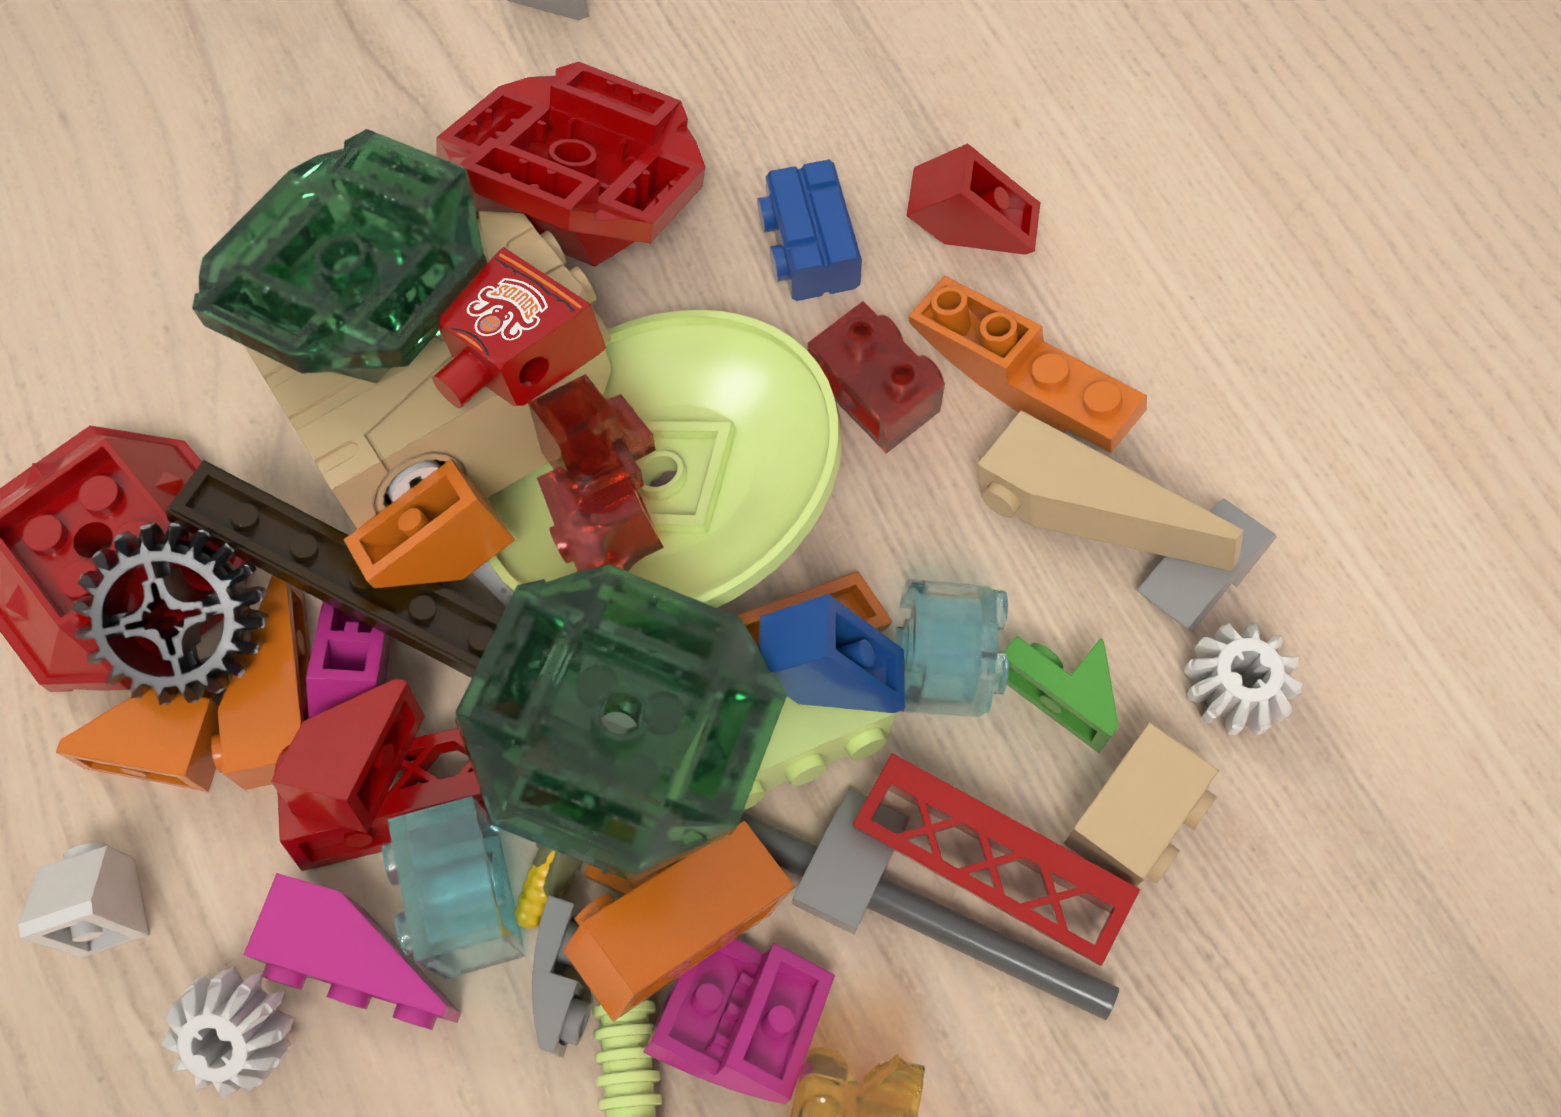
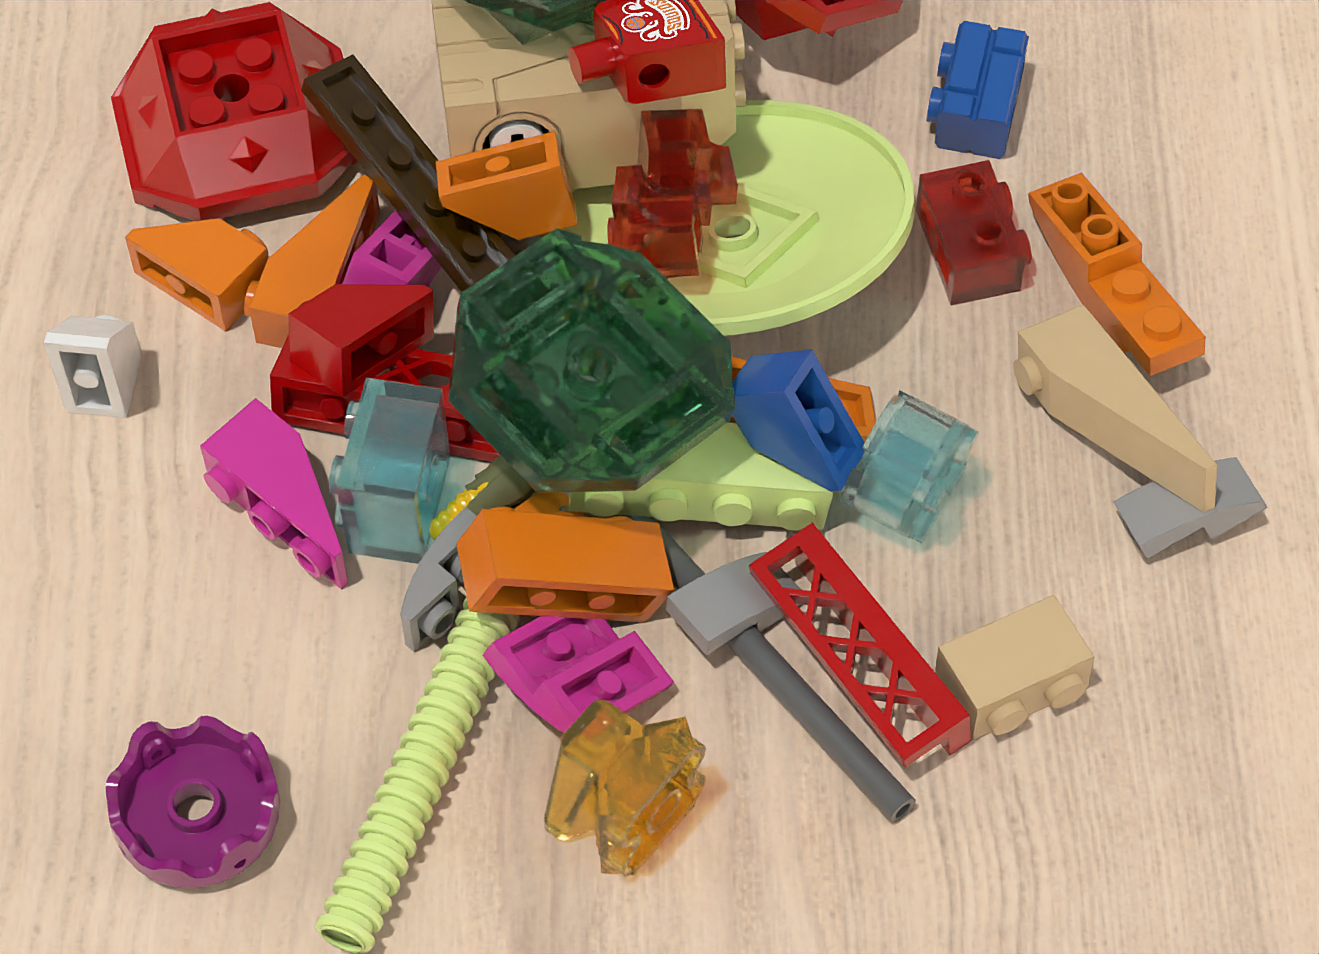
camera: 25 degrees right, 10 degrees down
(177, 641) = (266, 185): black gear -> none
(228, 1031) = (182, 495): white gear -> none
(973, 203) = (1145, 124): red slope -> none
(1076, 701) = (1000, 555): bright green slope -> none
(1261, 670) = (1190, 601): white gear -> none

